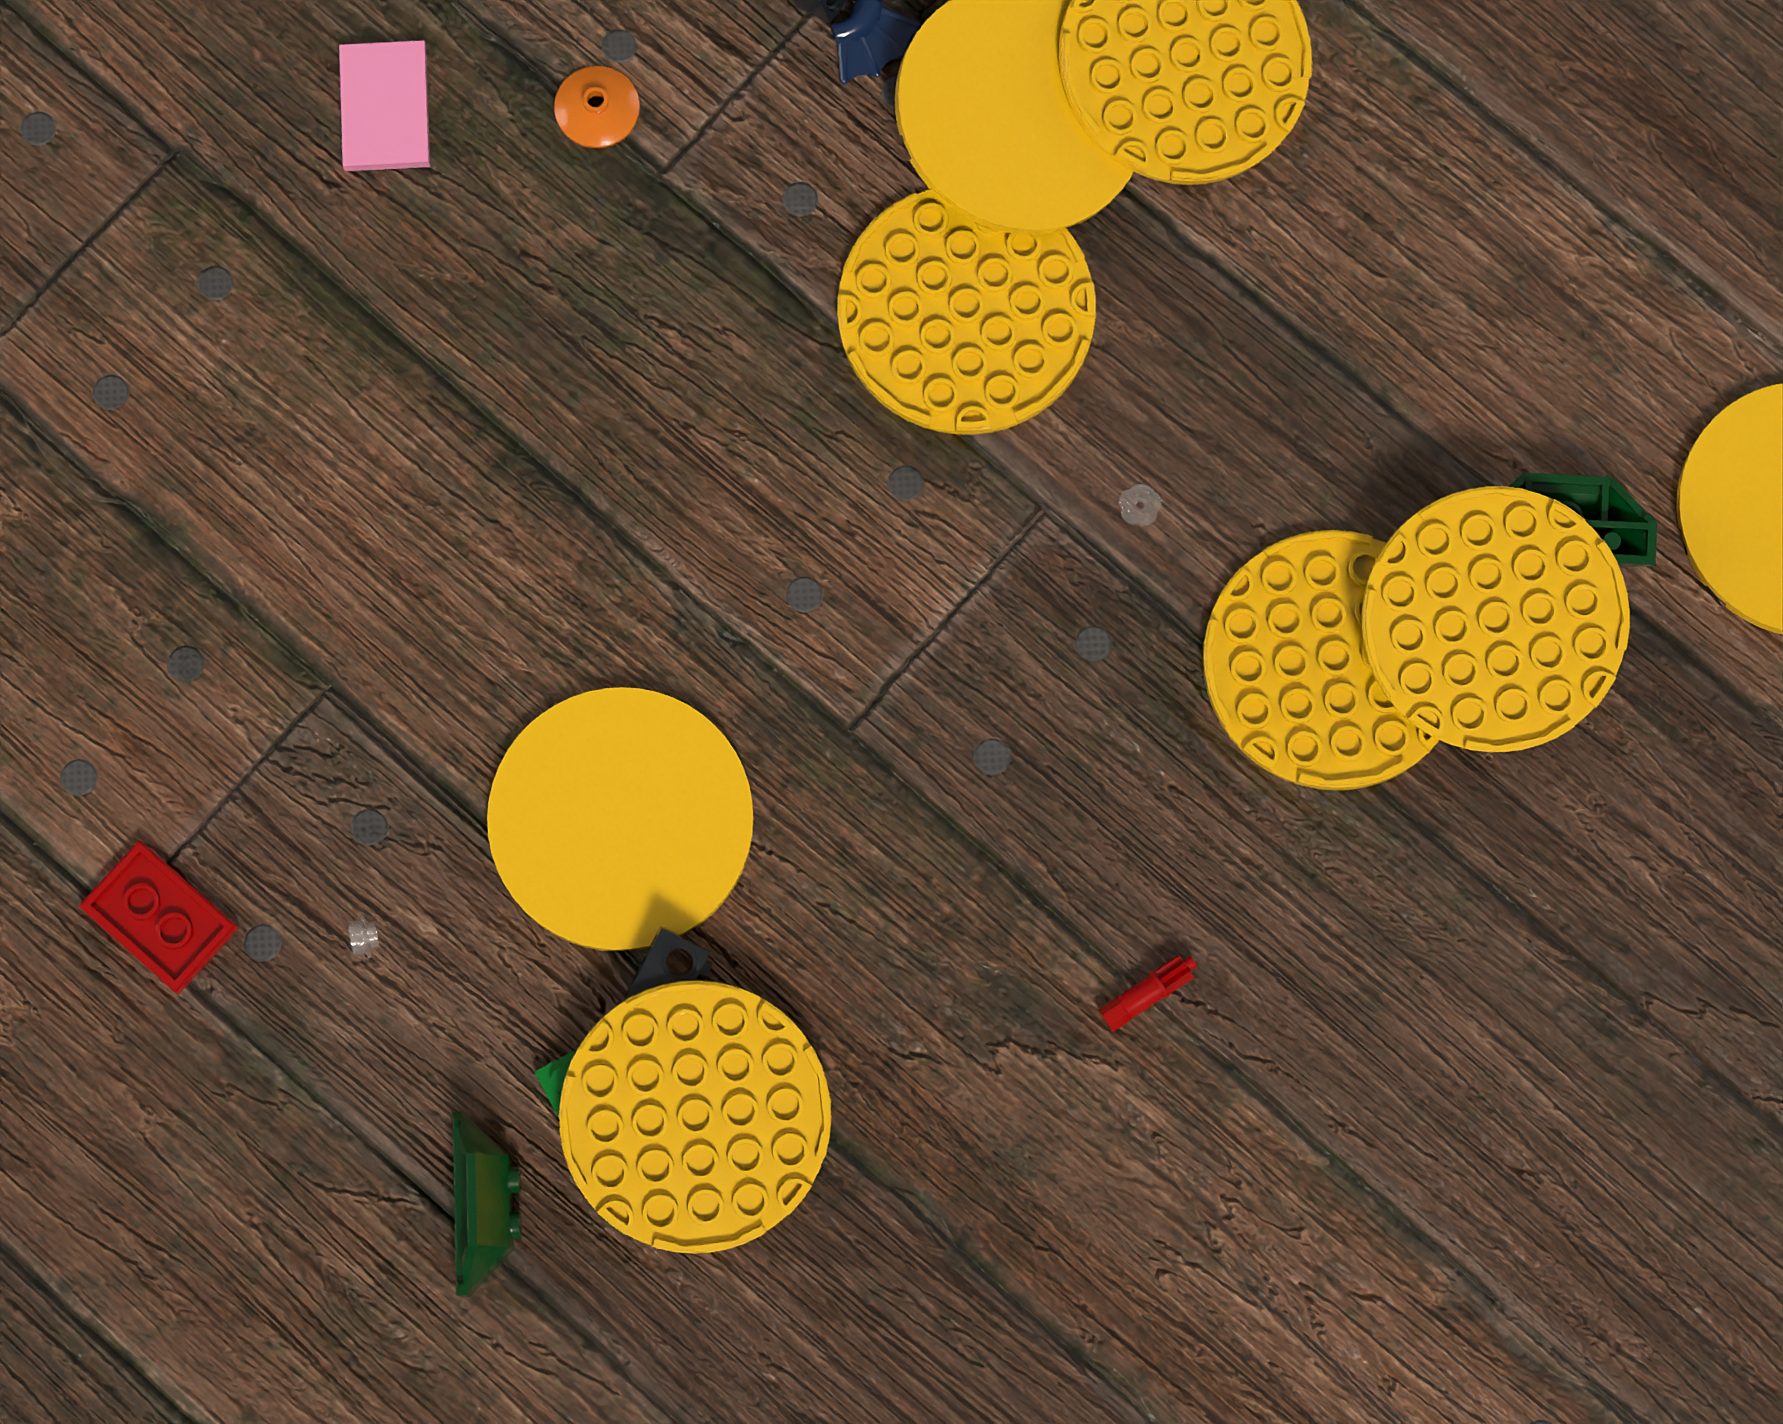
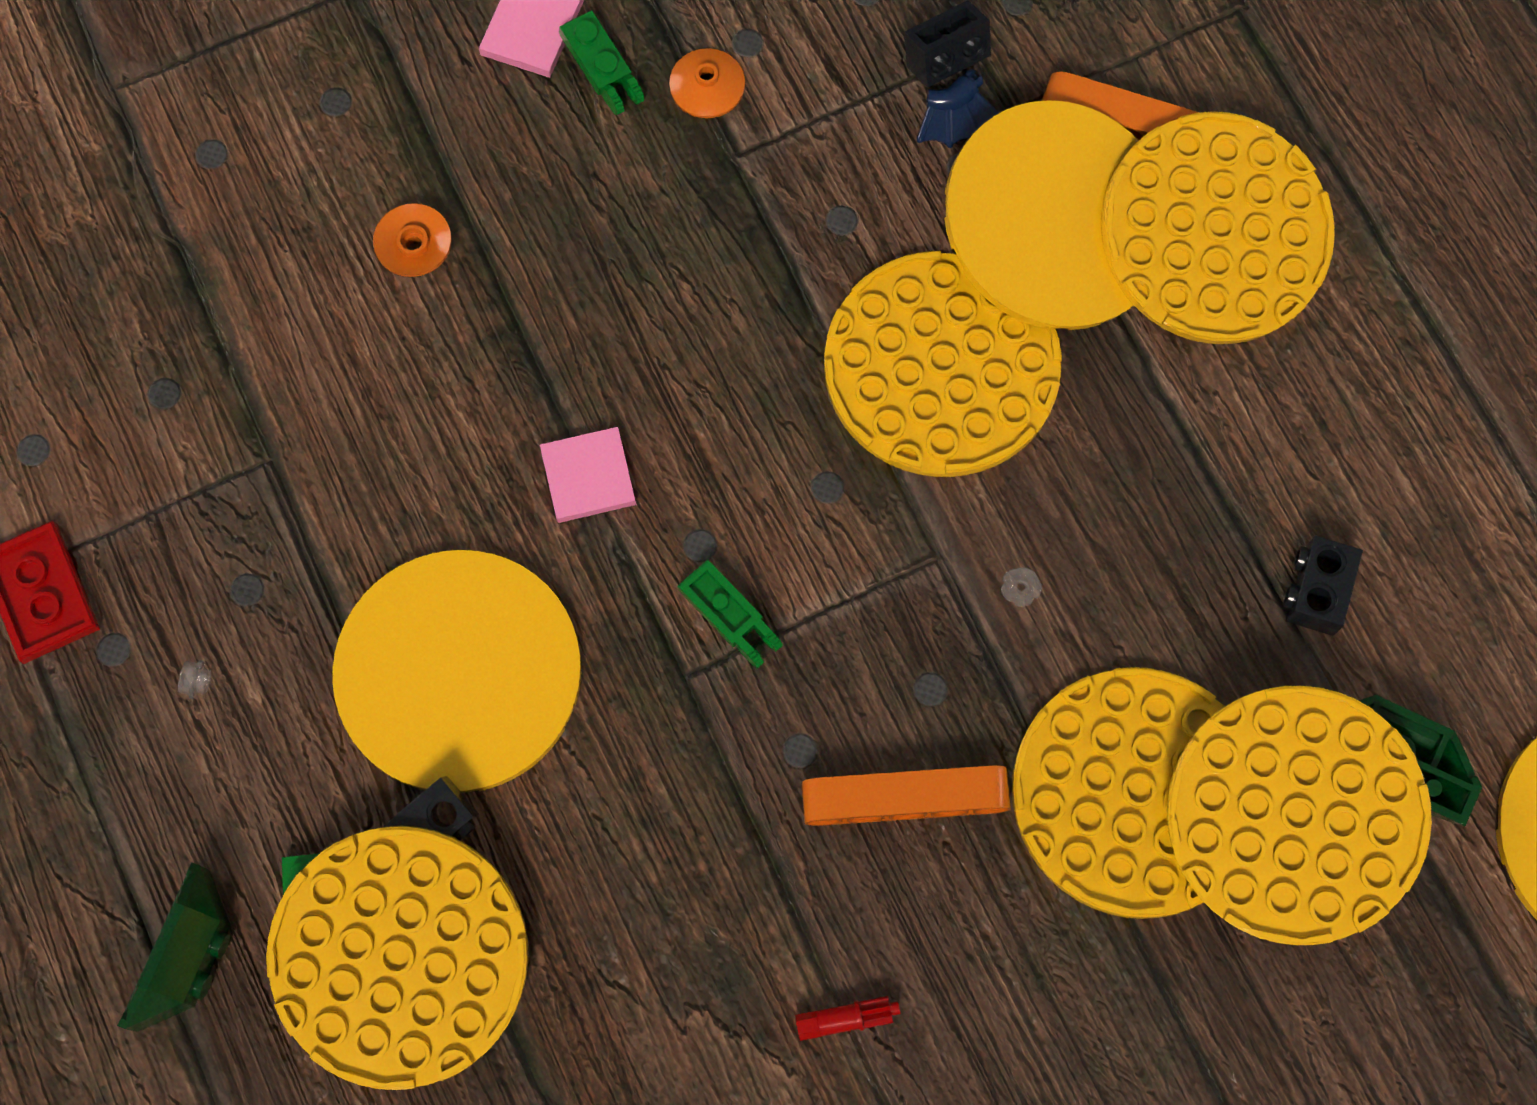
camera: 25 degrees right, 5 degrees down
(360, 383) = (408, 225): none -> orange dish
(477, 129) = (600, 60): none -> green hinge
(661, 569) = (587, 474): none -> bright pink tile
(862, 649) = (727, 611): none -> green hinge
(1114, 757) = (905, 795): none -> orange beam
(1443, 383) = (1330, 588): none -> black brick

